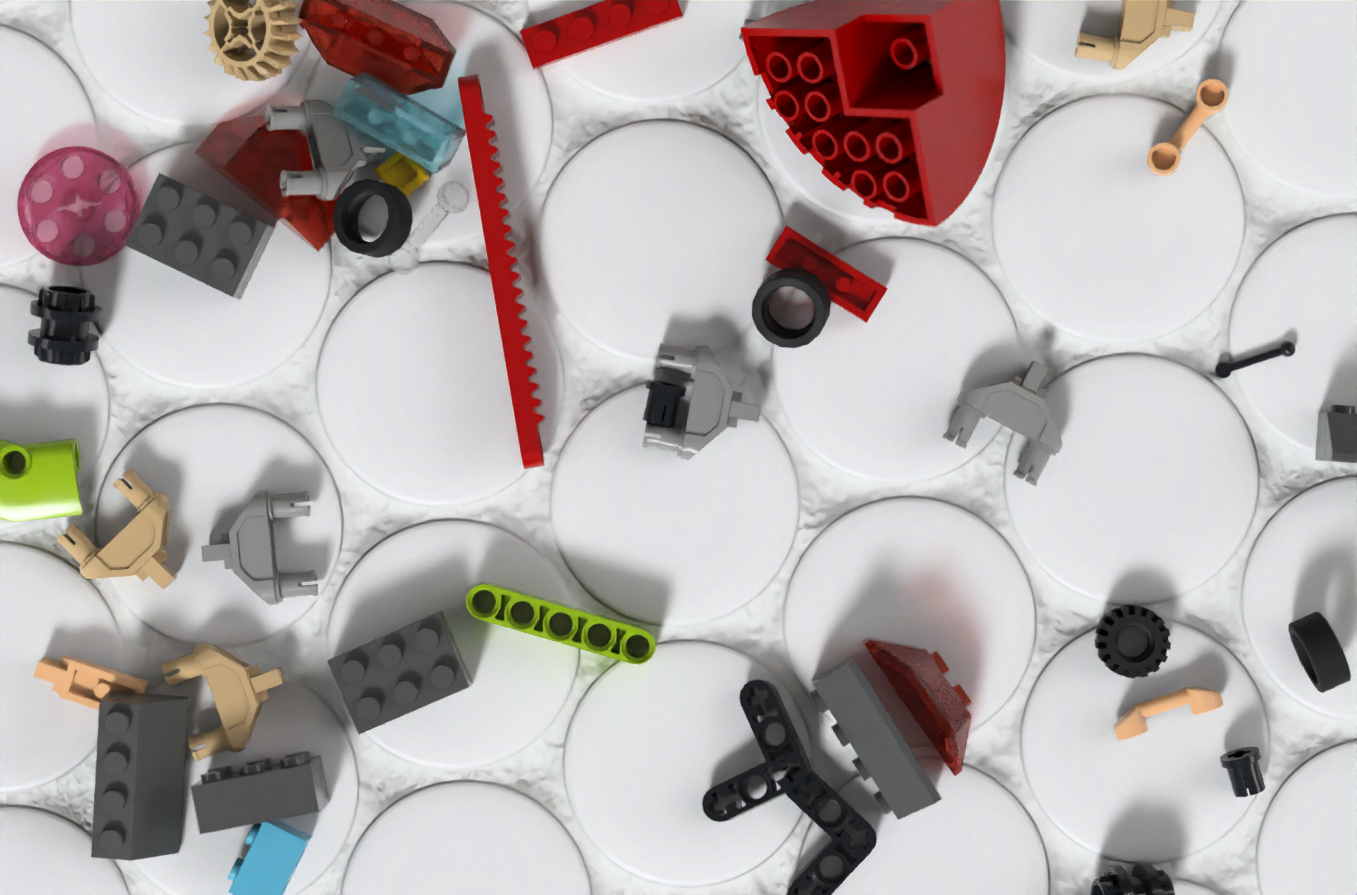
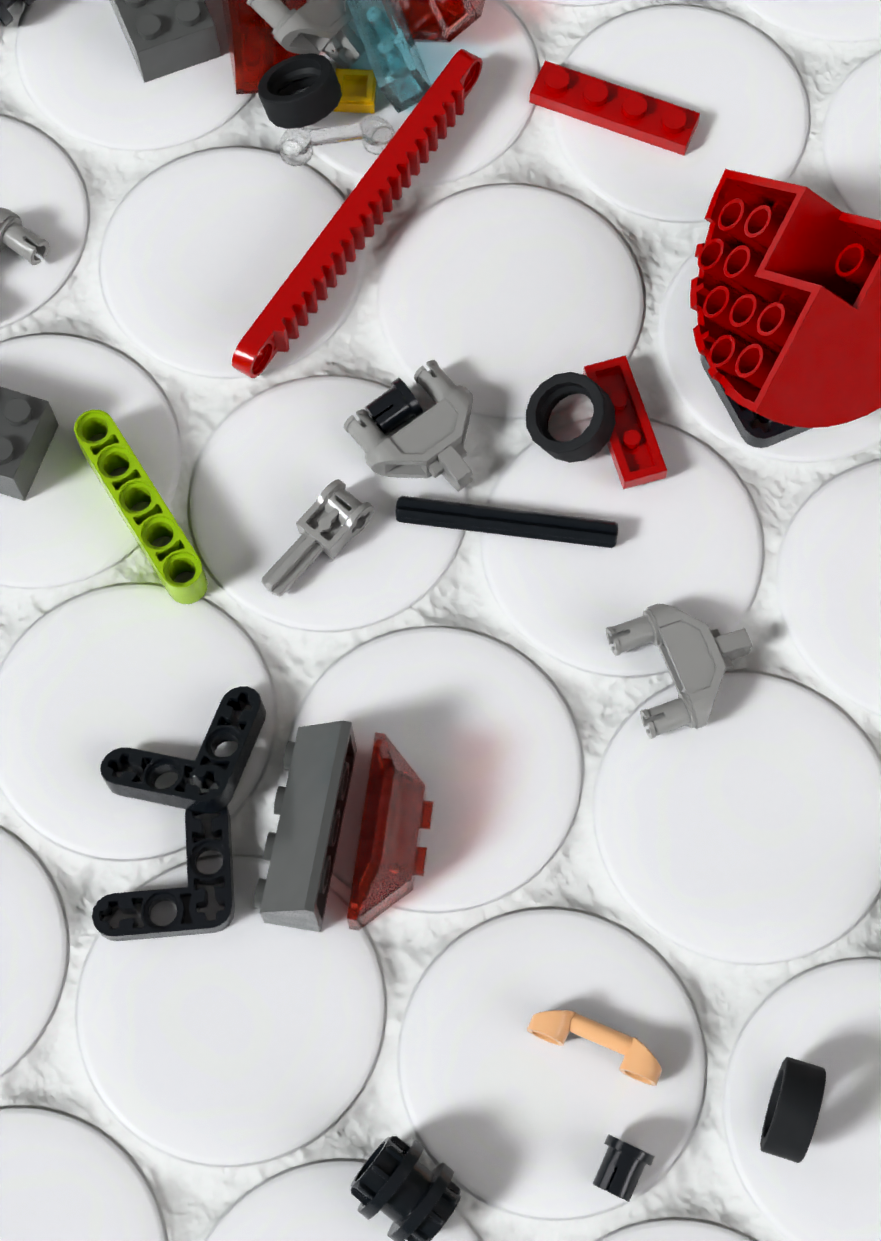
camera: 45 degrees right, 20 degrees down
(697, 531) = (324, 528): none -> light grey connector
(810, 416) = (506, 521): none -> black axle
(1108, 641) = (628, 922): black tyre -> none

